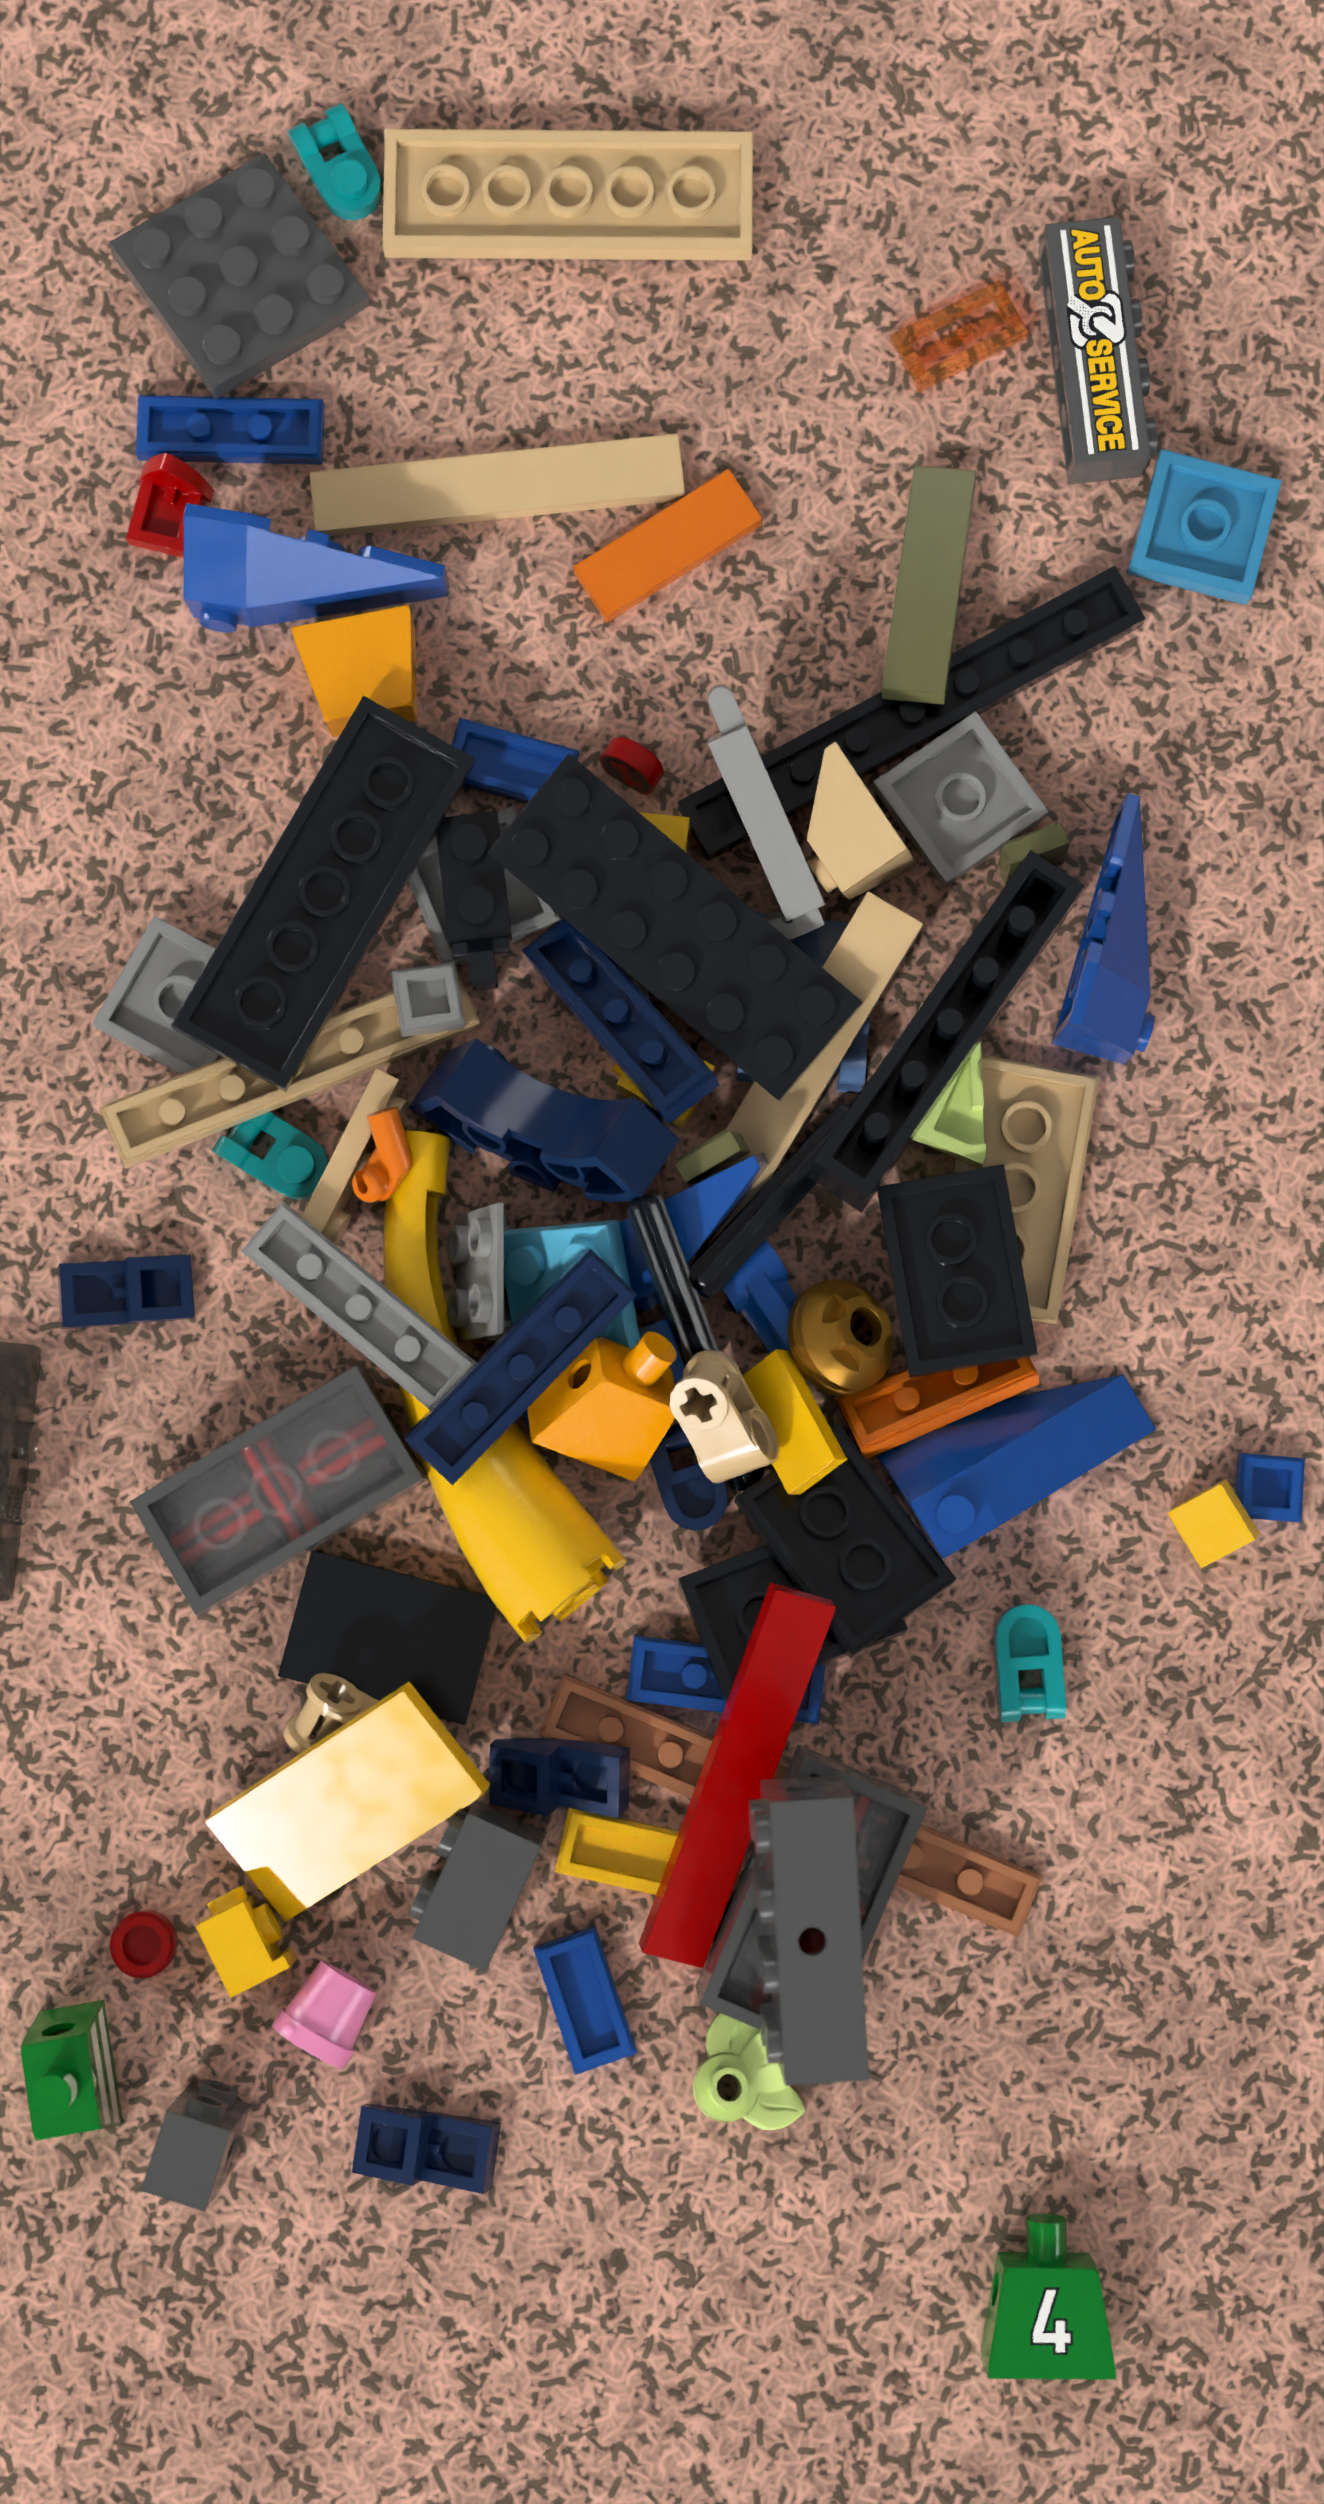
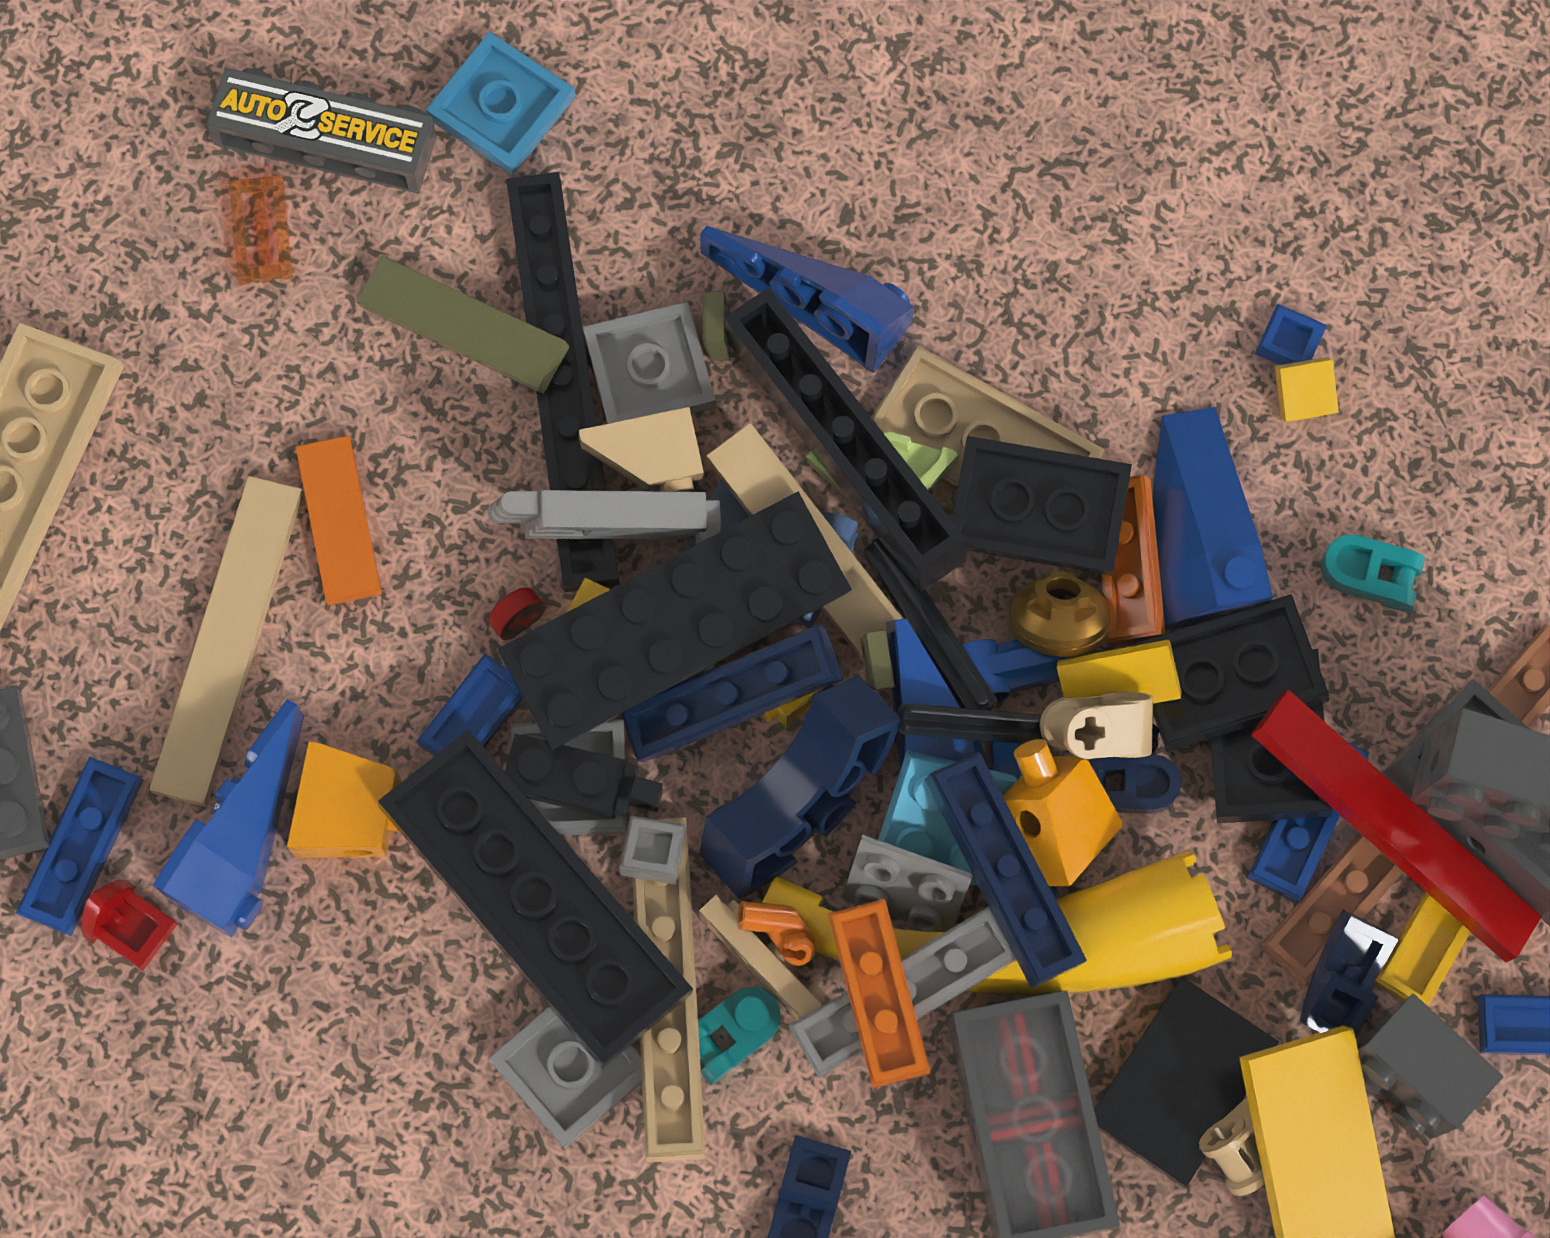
camera: 75 degrees left, 10 degrees down
(342, 1280) = (879, 993): none -> orange tile

